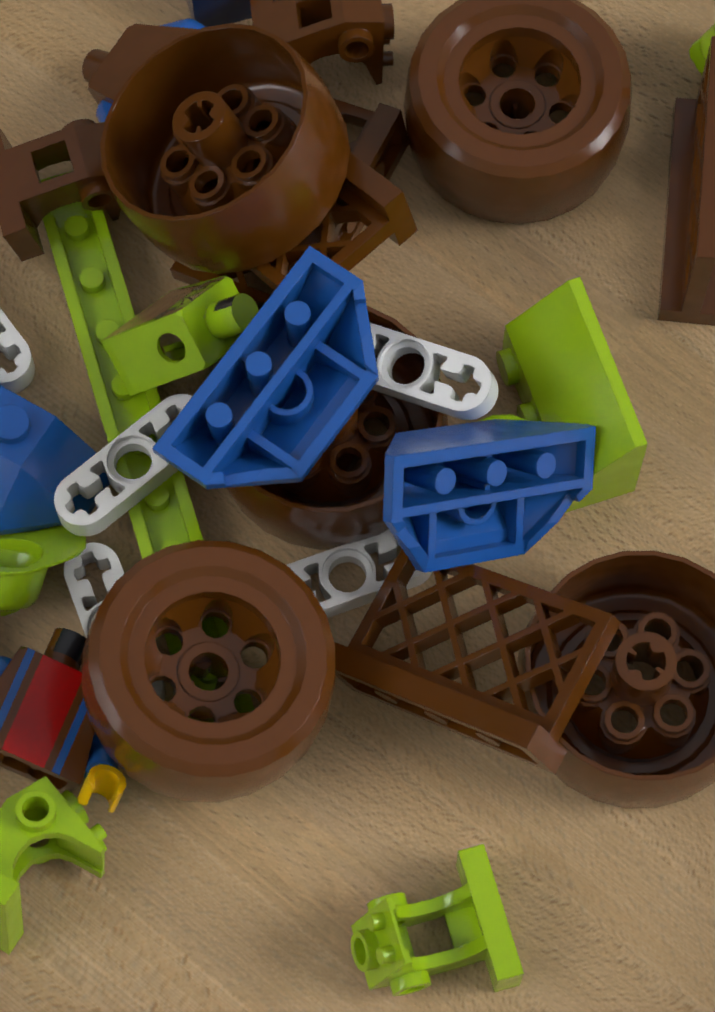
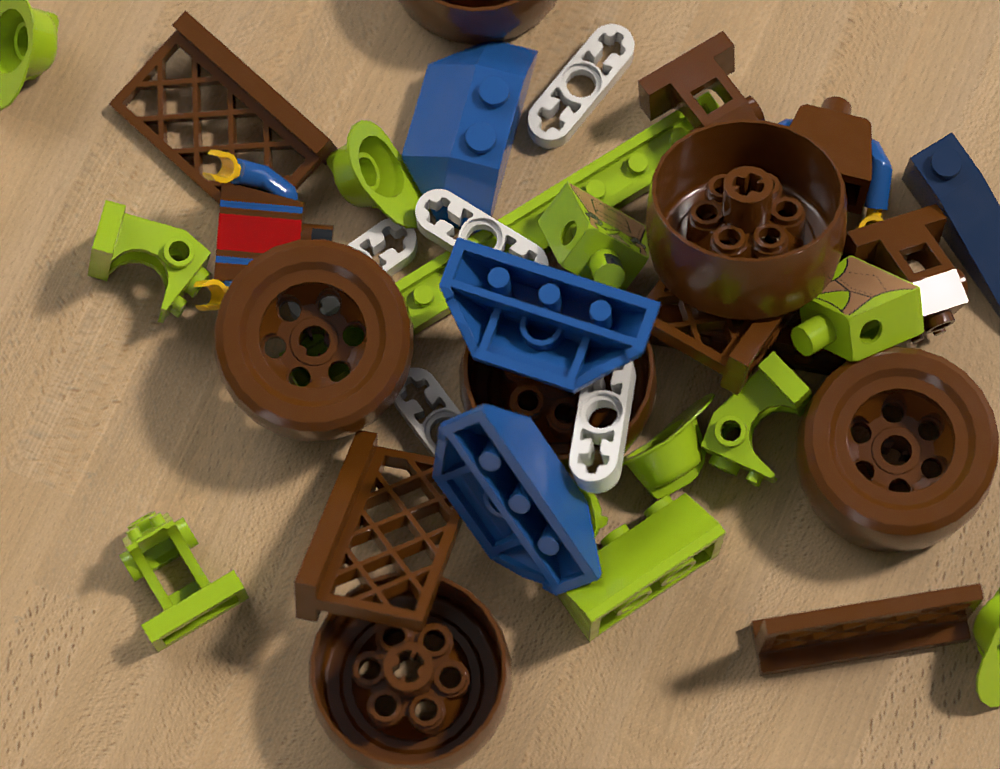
camera: 75 degrees right, 5 degrees up
(369, 77) = (860, 313): none -> lime torso
(434, 266) = (768, 391): none -> lime tile
(439, 319) = (673, 455): none -> lime piece

